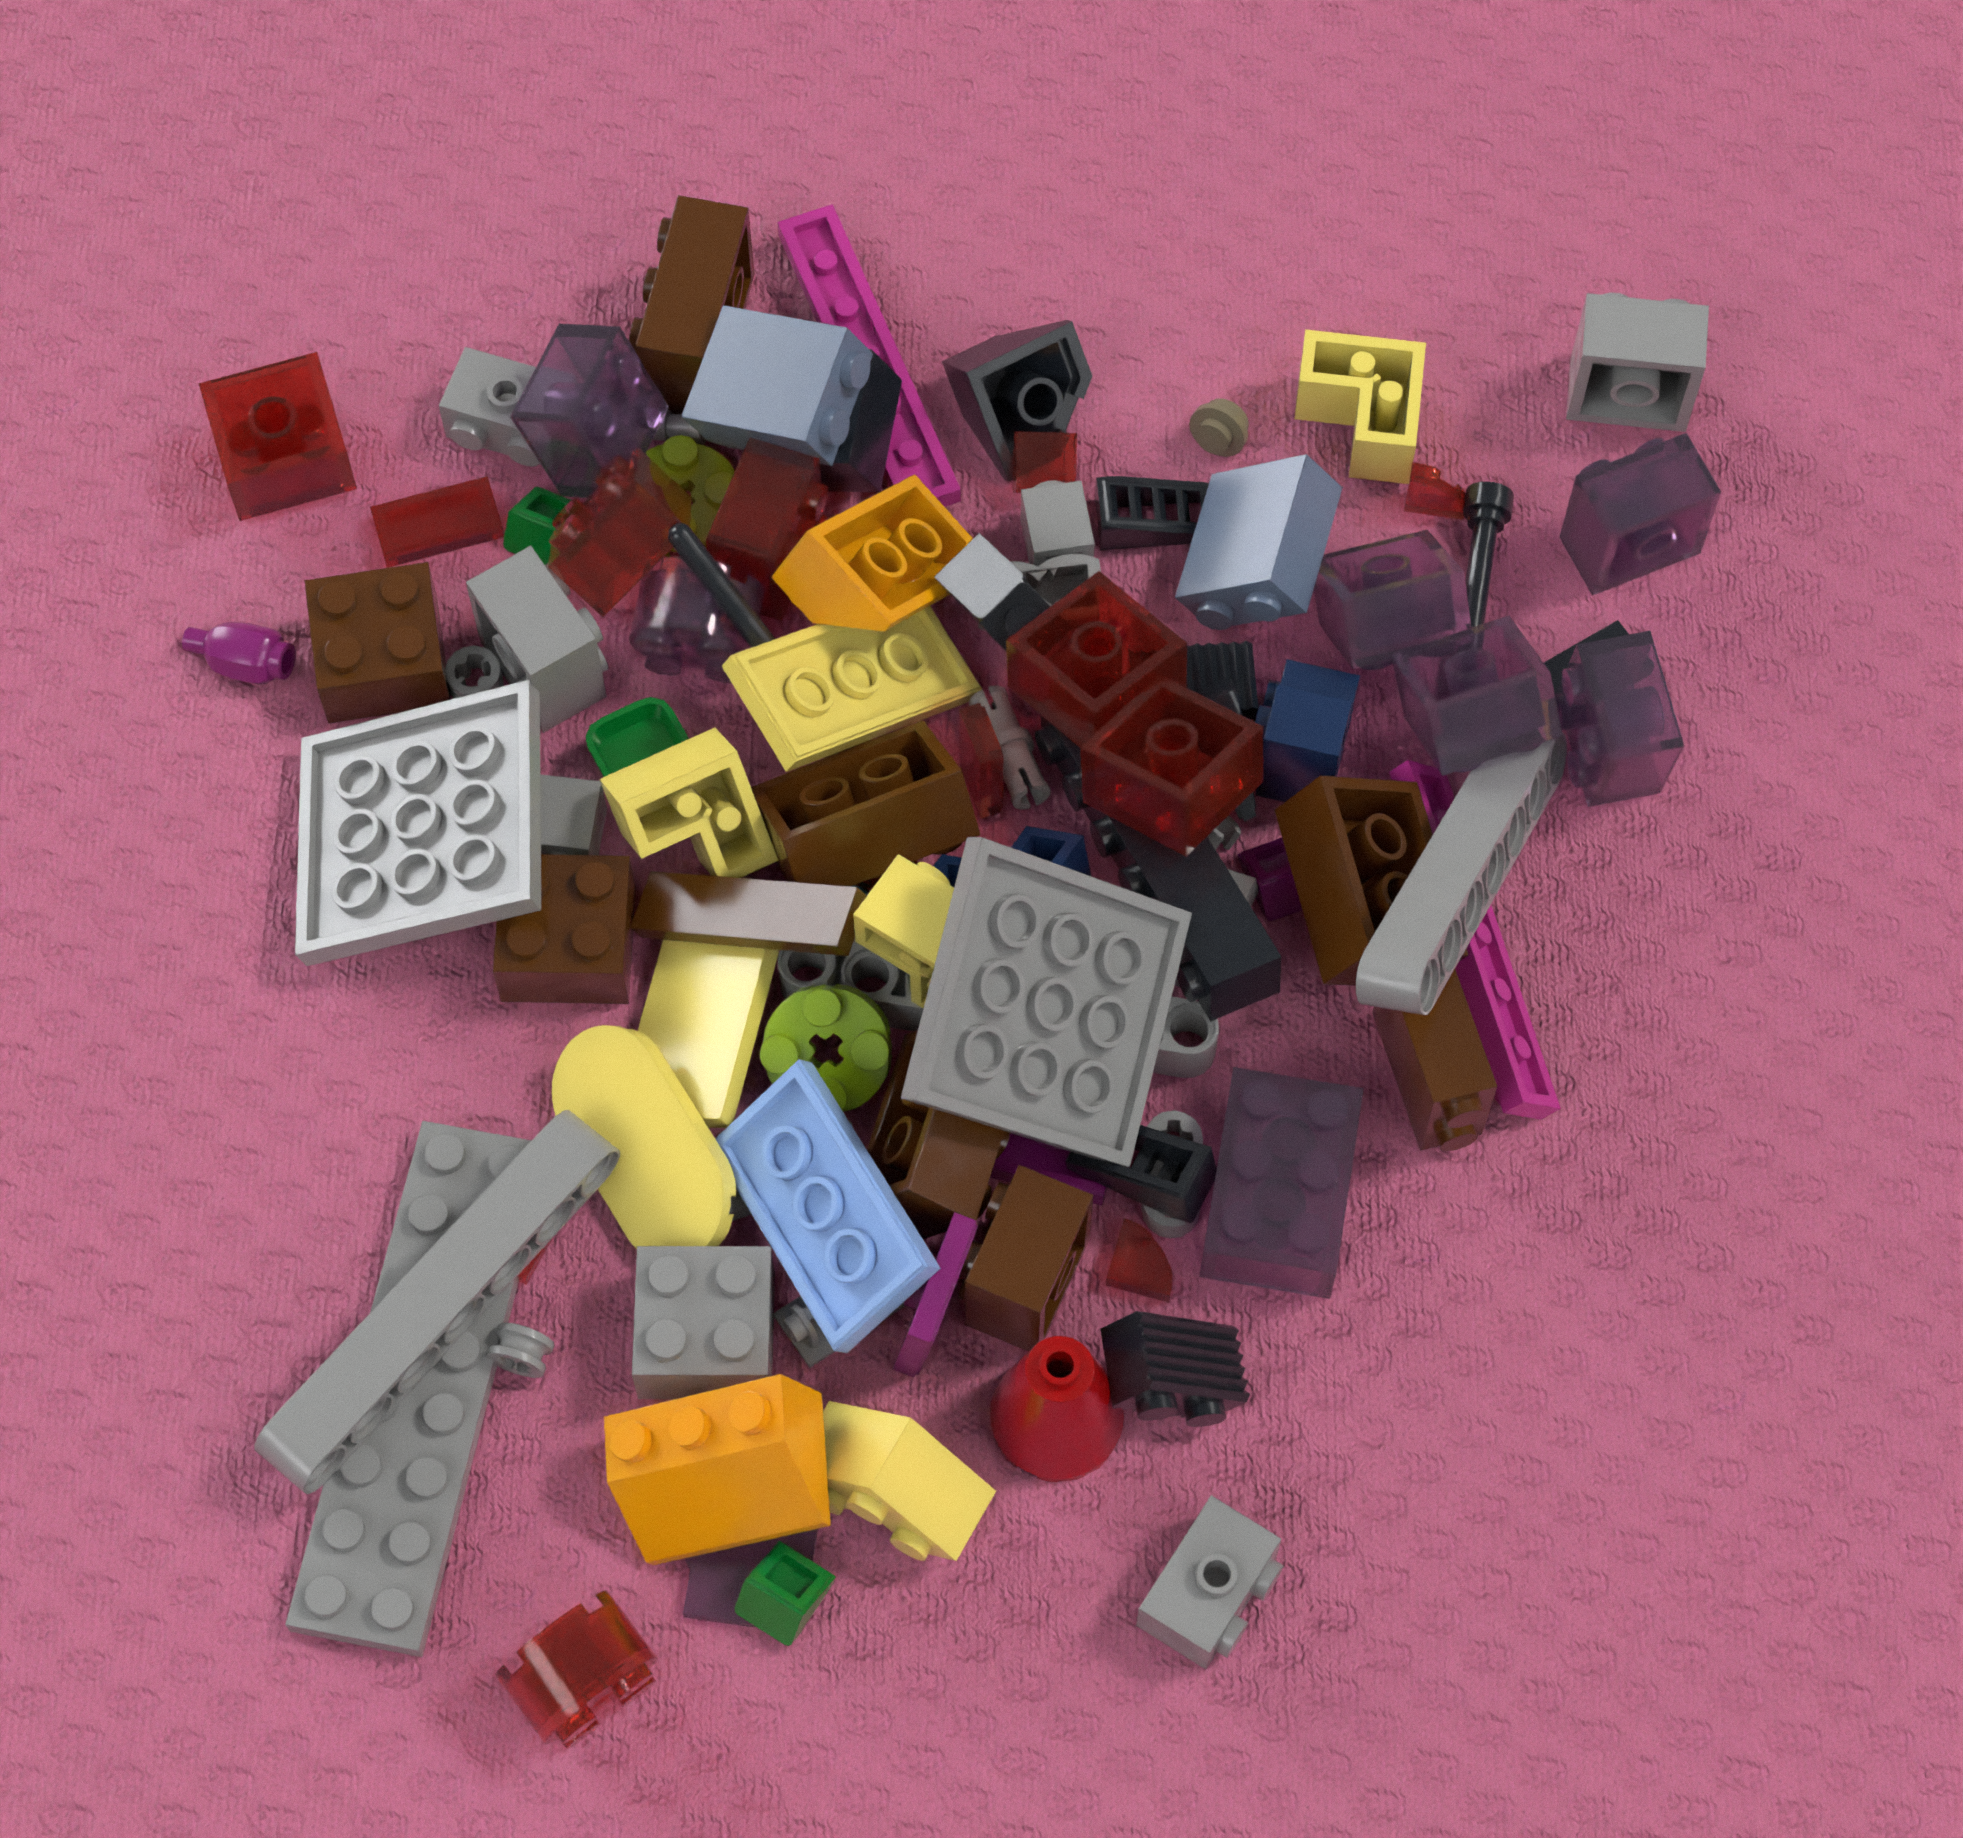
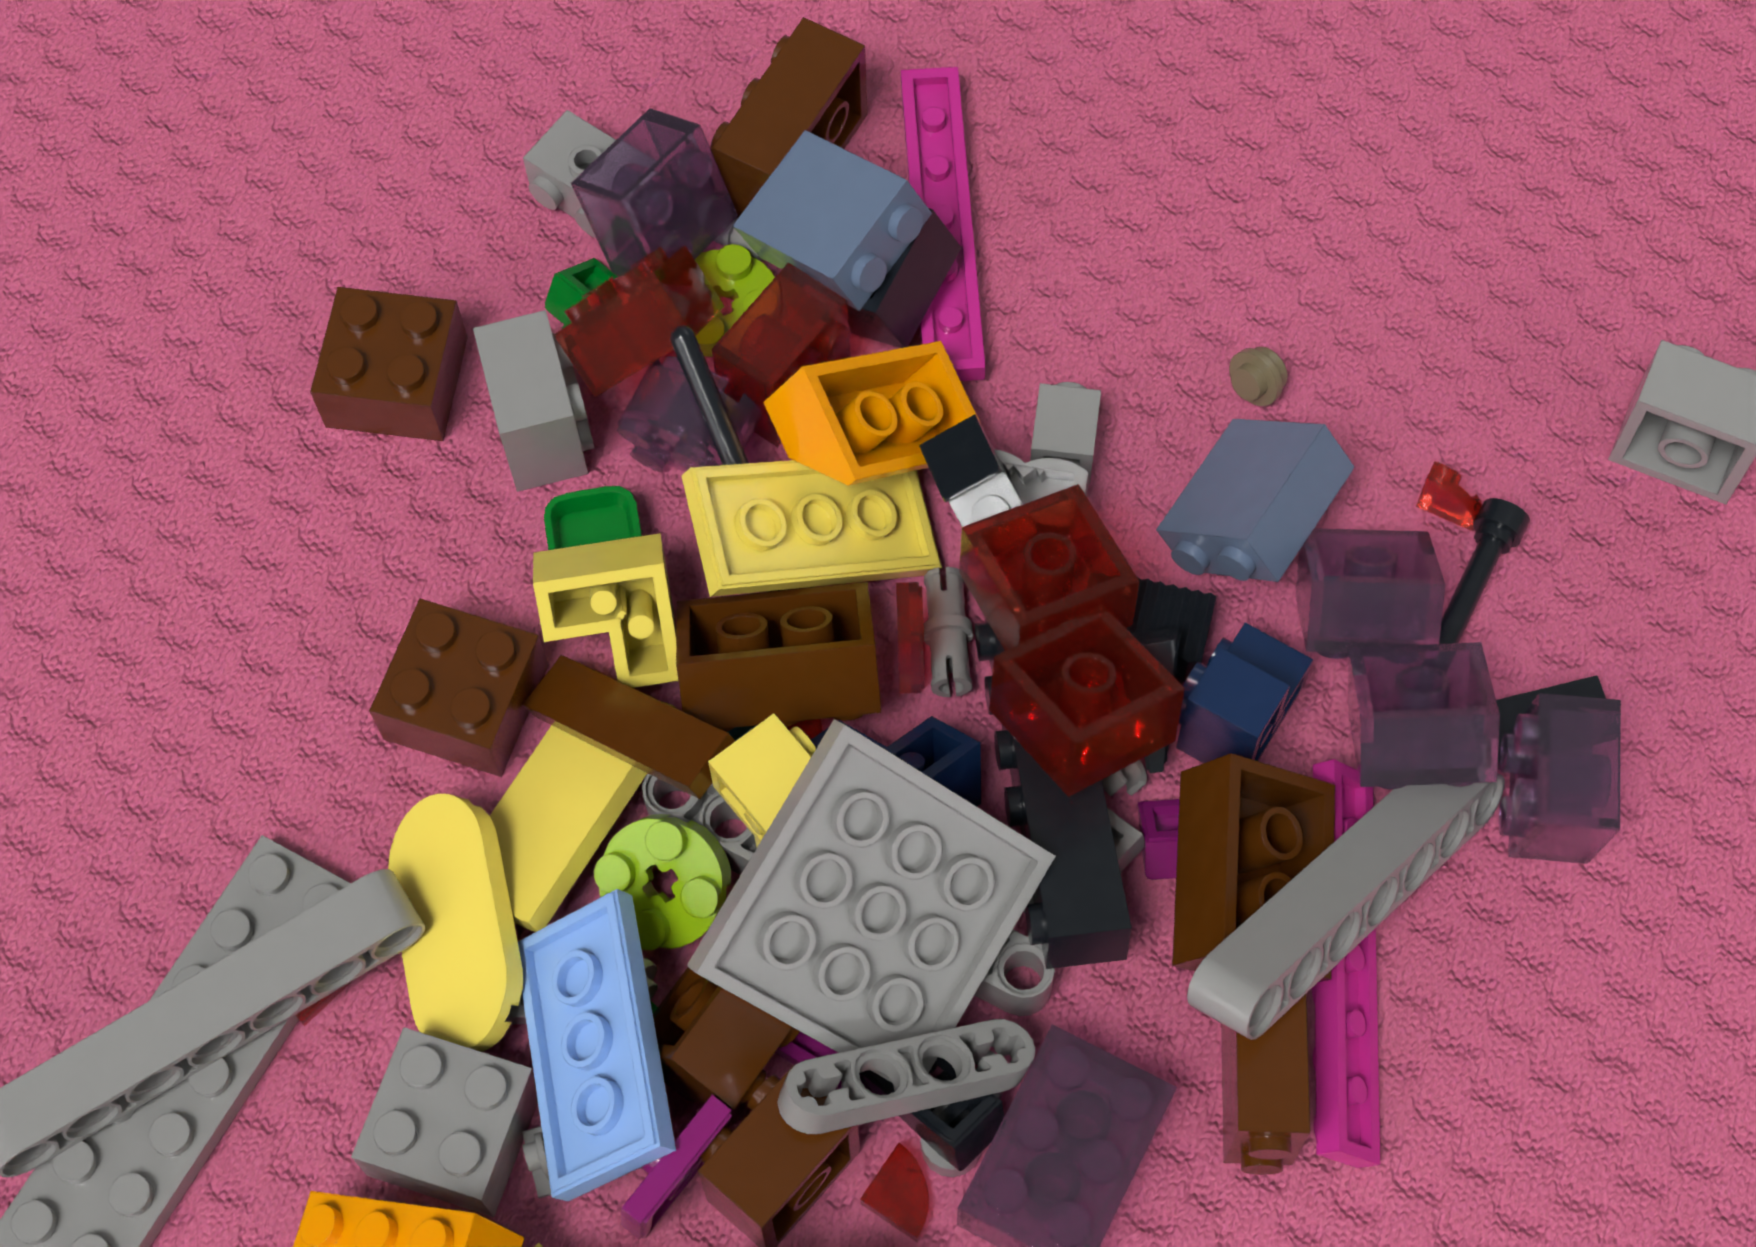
camera: 20 degrees right, 0 degrees up
(243, 651) = (270, 338): magenta plant -> none
(277, 436) = (369, 147): clear red brick -> none
(419, 824) = (357, 548): plate -> none
(437, 521) = (491, 266): clear red tile -> none
(460, 666) = (463, 406): light grey bush -> none
(520, 1350) = (267, 1093): light grey bush -> none
(571, 816) = (497, 582): light grey brick -> none
(1020, 385) = (1076, 291): black slope -> none
(1043, 458) = (1076, 359): clear red tile -> none
(1115, 1135) = (904, 1066): none -> light grey beam
(1135, 492) = (1156, 416): black slope -> none
(1370, 387) = (1417, 376): light yellow brick -> none
(1639, 512) = (1651, 573): clear purple brick -> none

